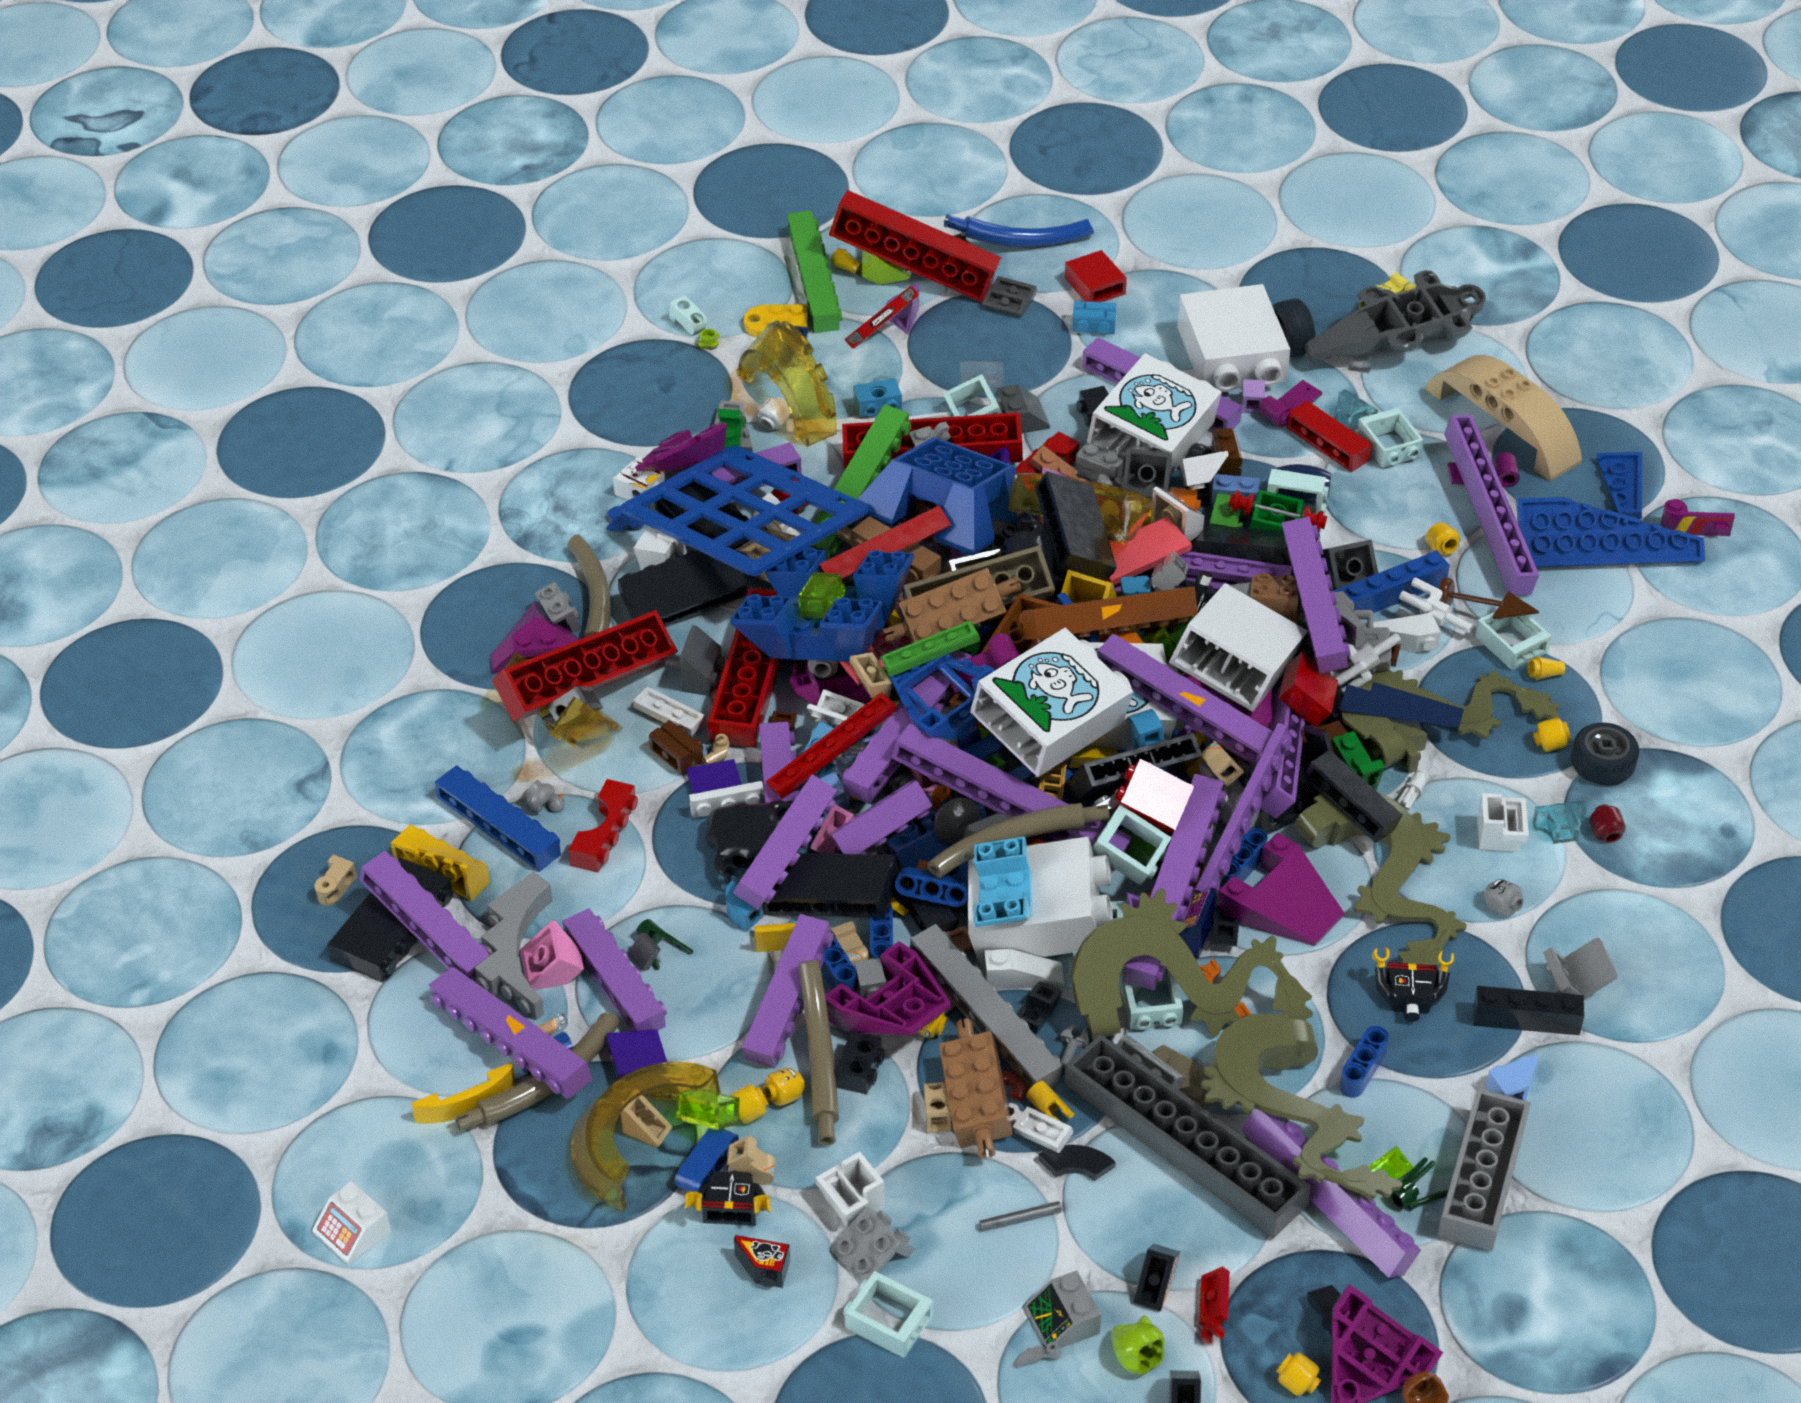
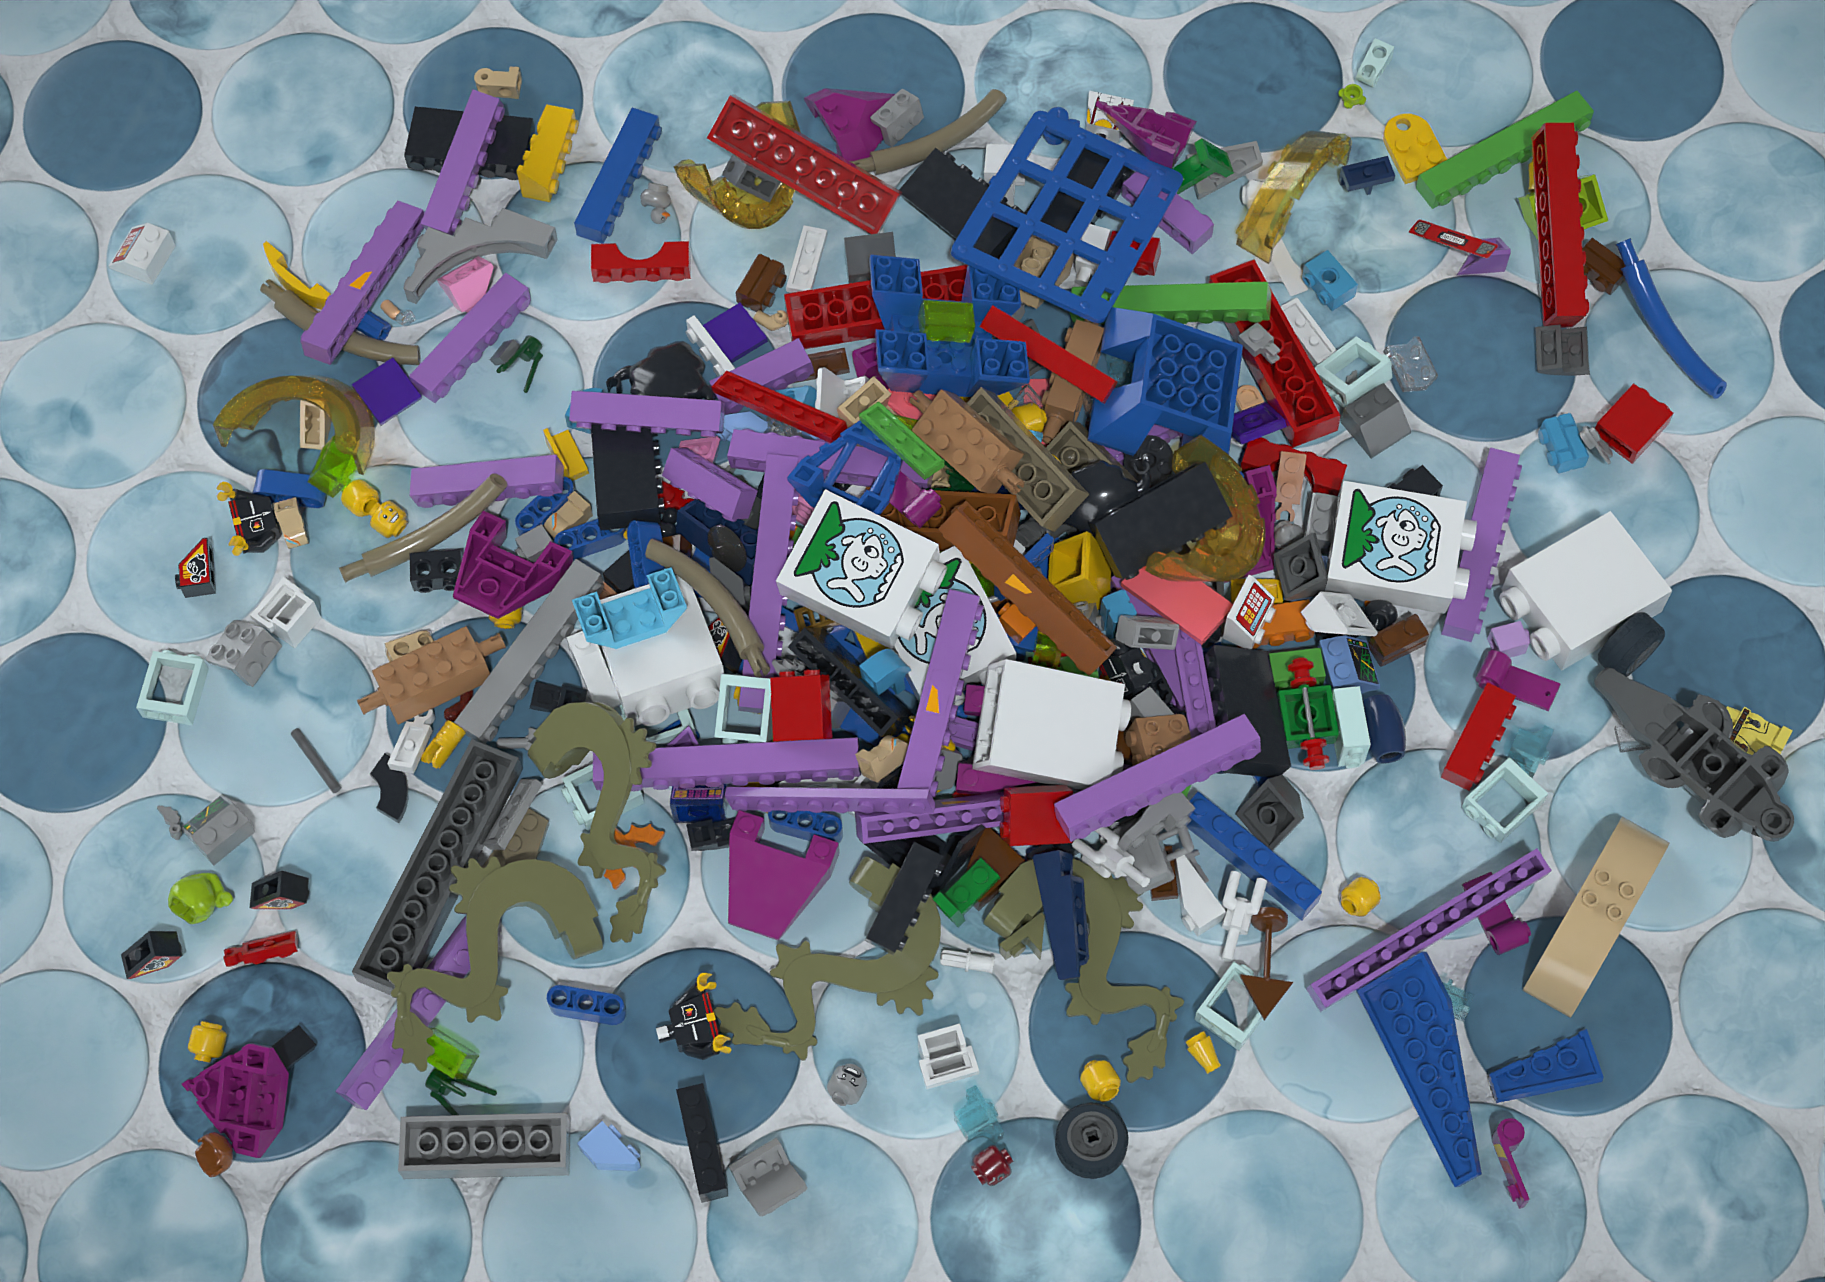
camera: 70 degrees right, 20 degrees up
(1104, 294) = (1593, 439): none -> light grey plate

